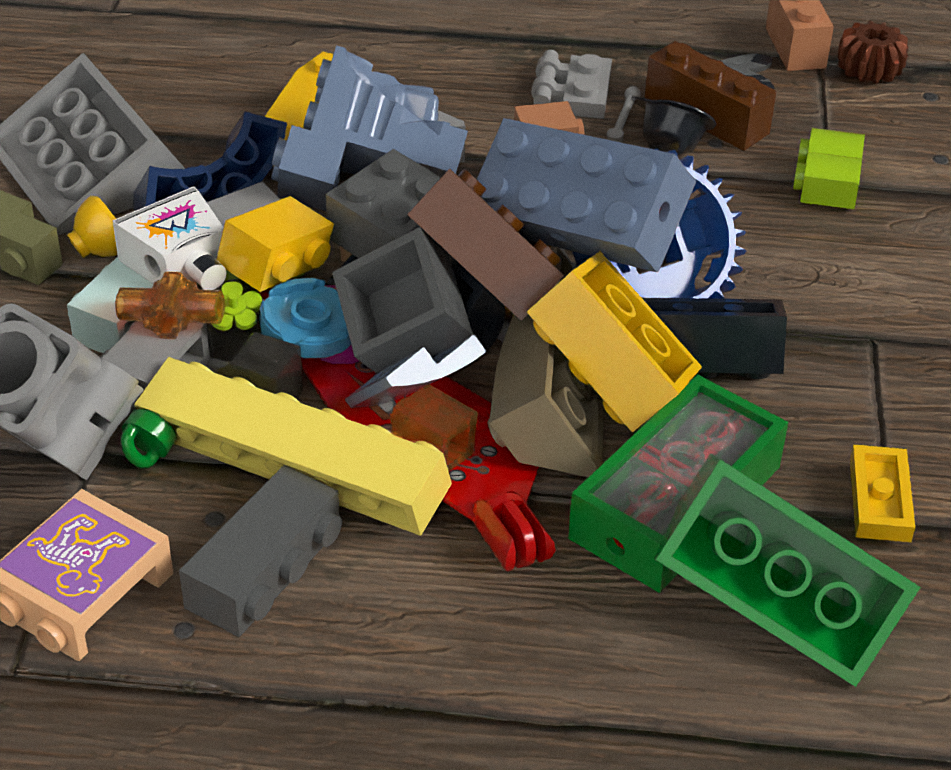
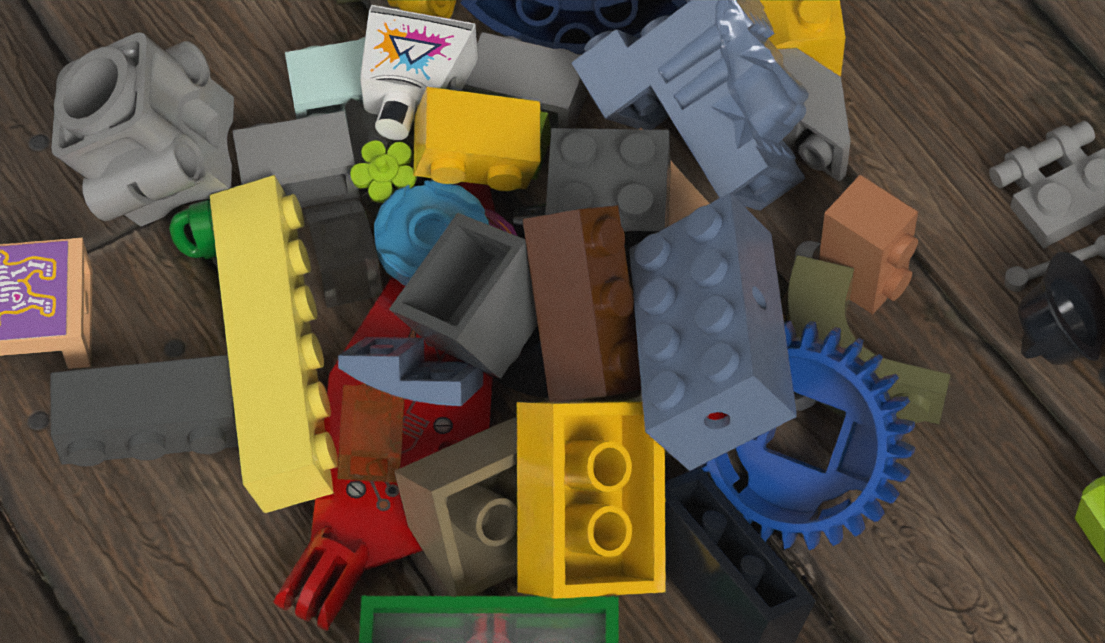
camera: 55 degrees right, 15 degrees up
(170, 305) = (329, 127): clear orange axle -> none

